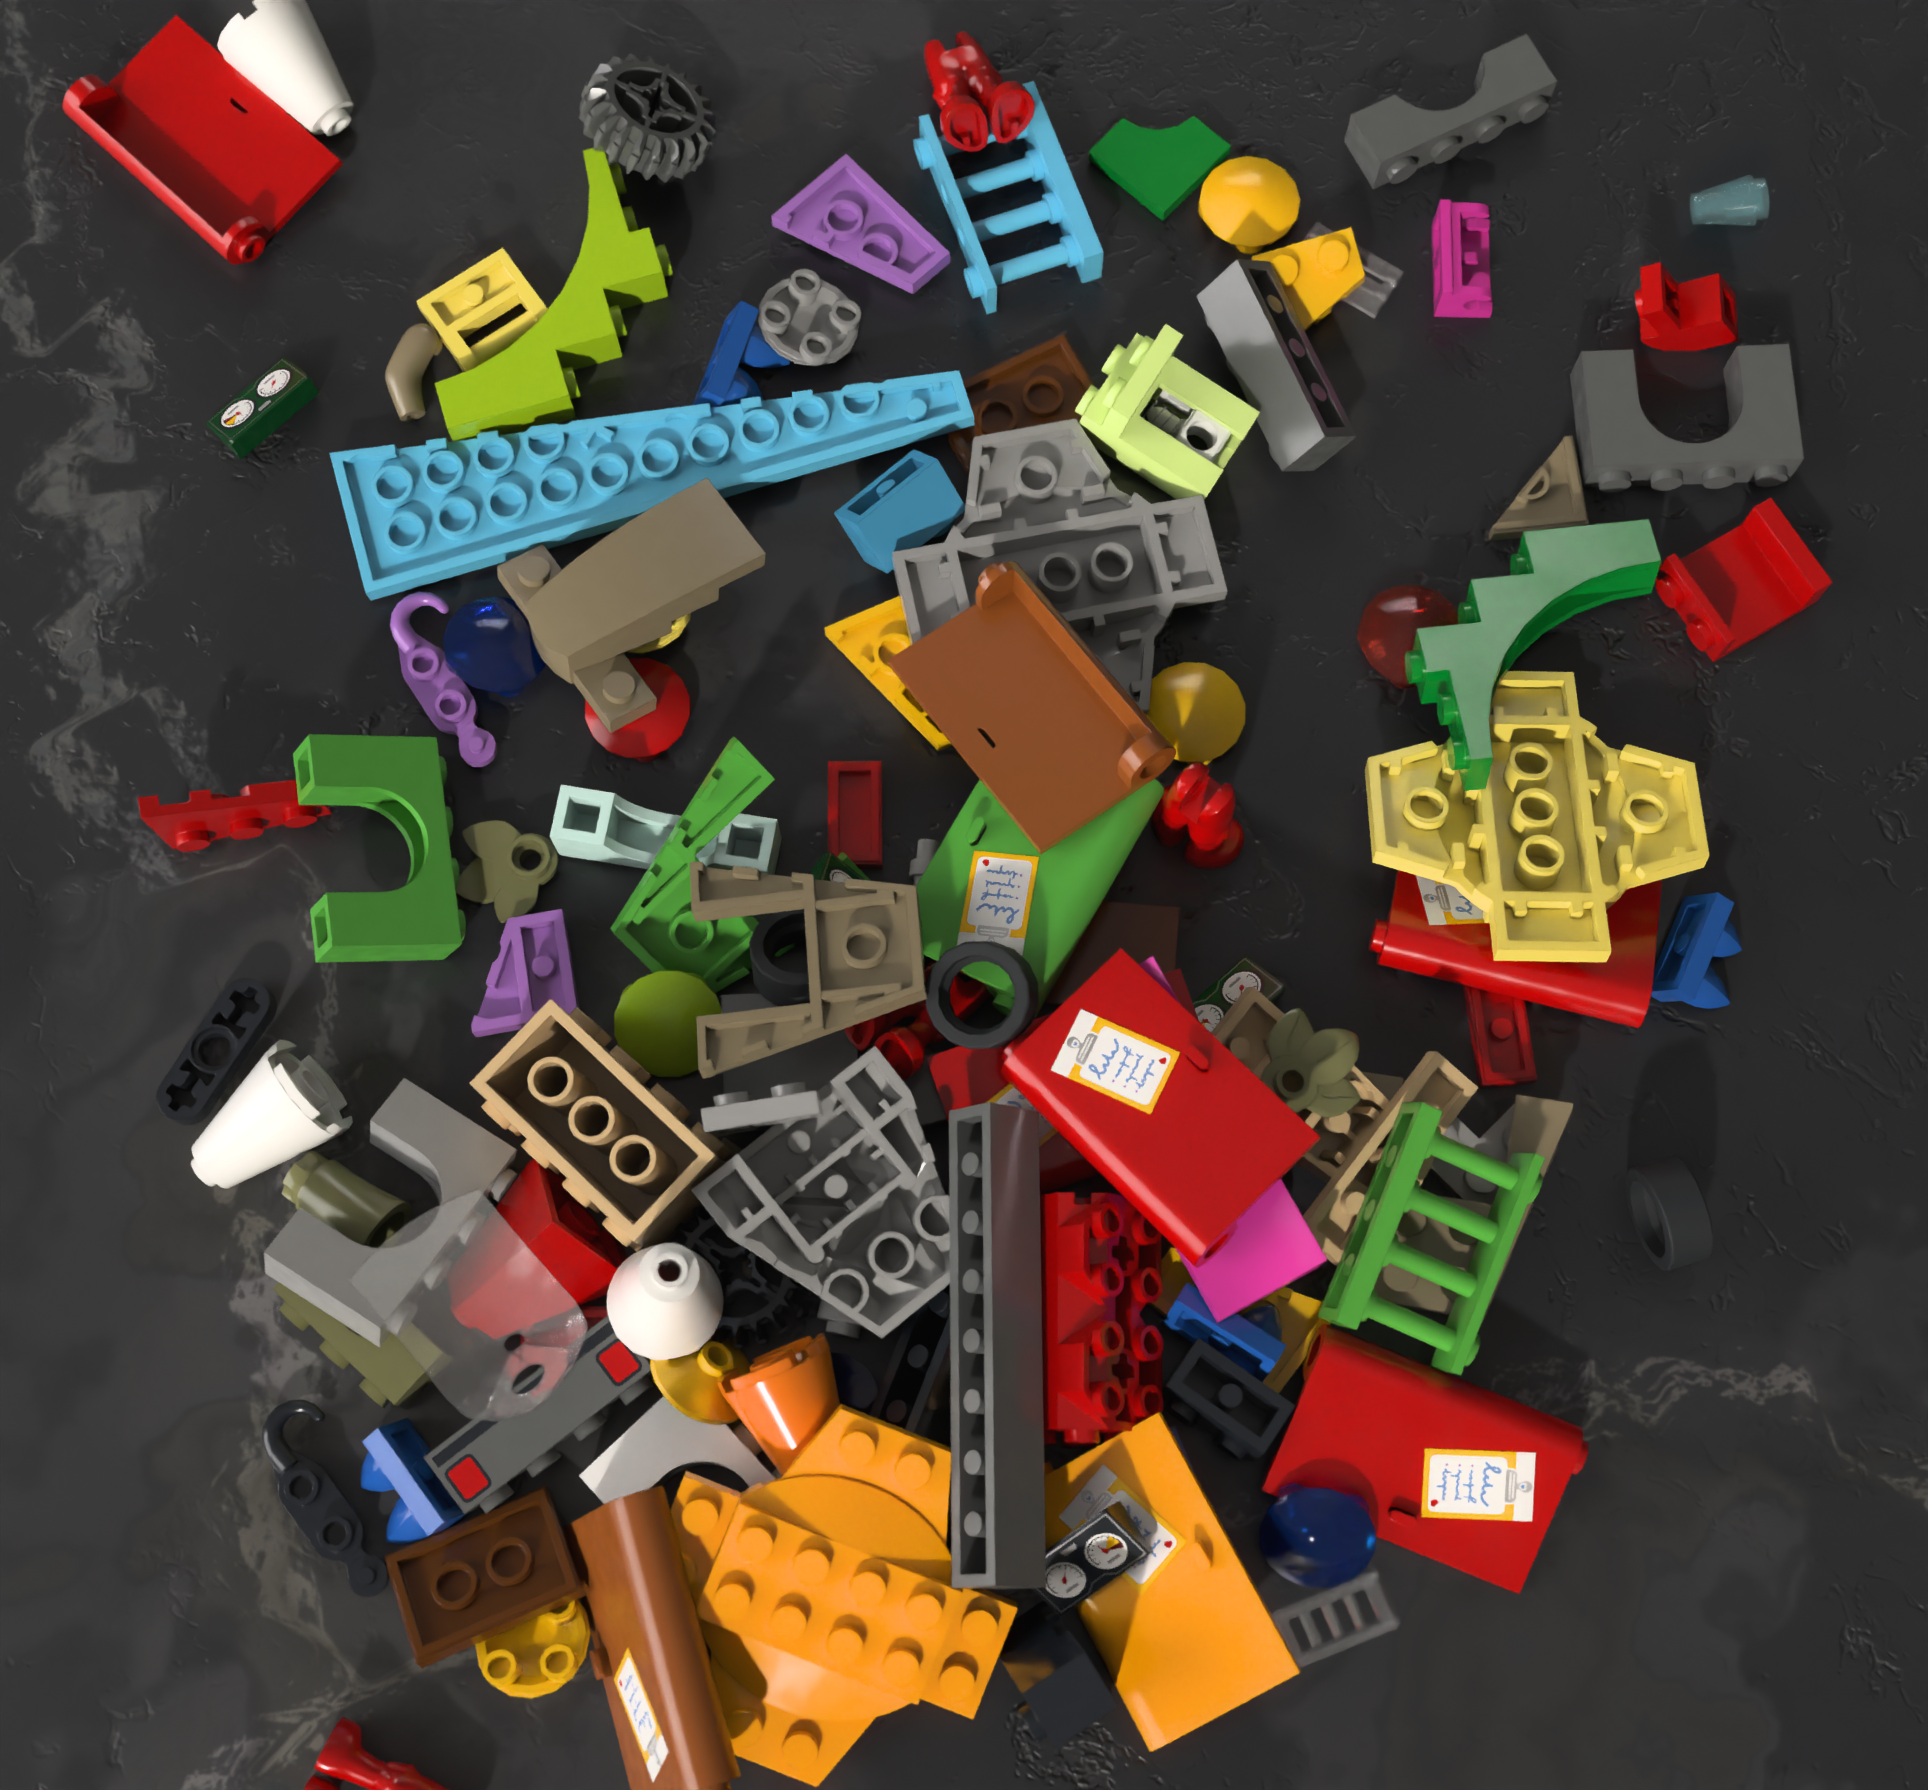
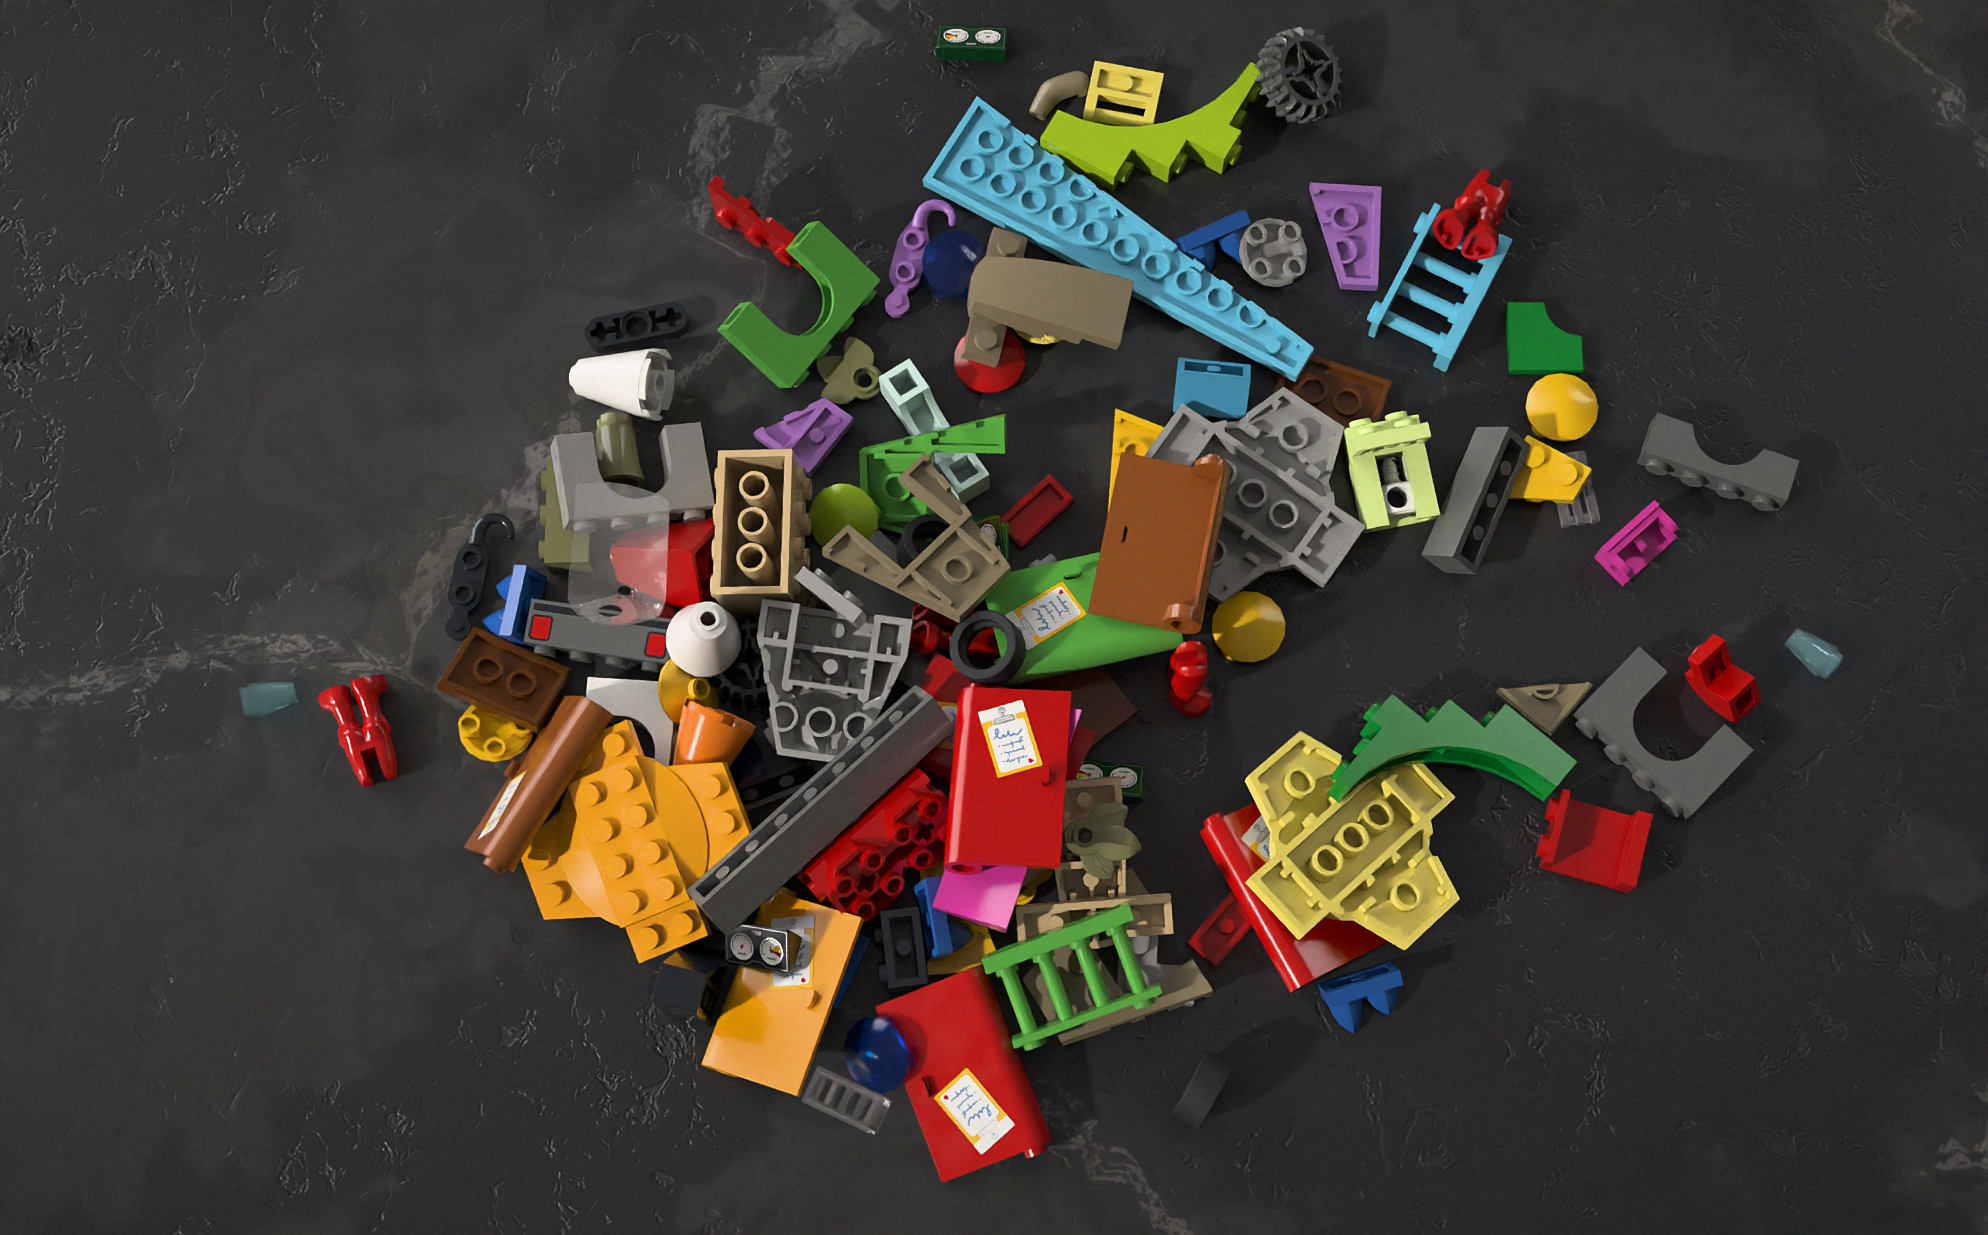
camera: 50 degrees right, 0 degrees up
(1391, 626) = (1404, 682): clear red dish -> none

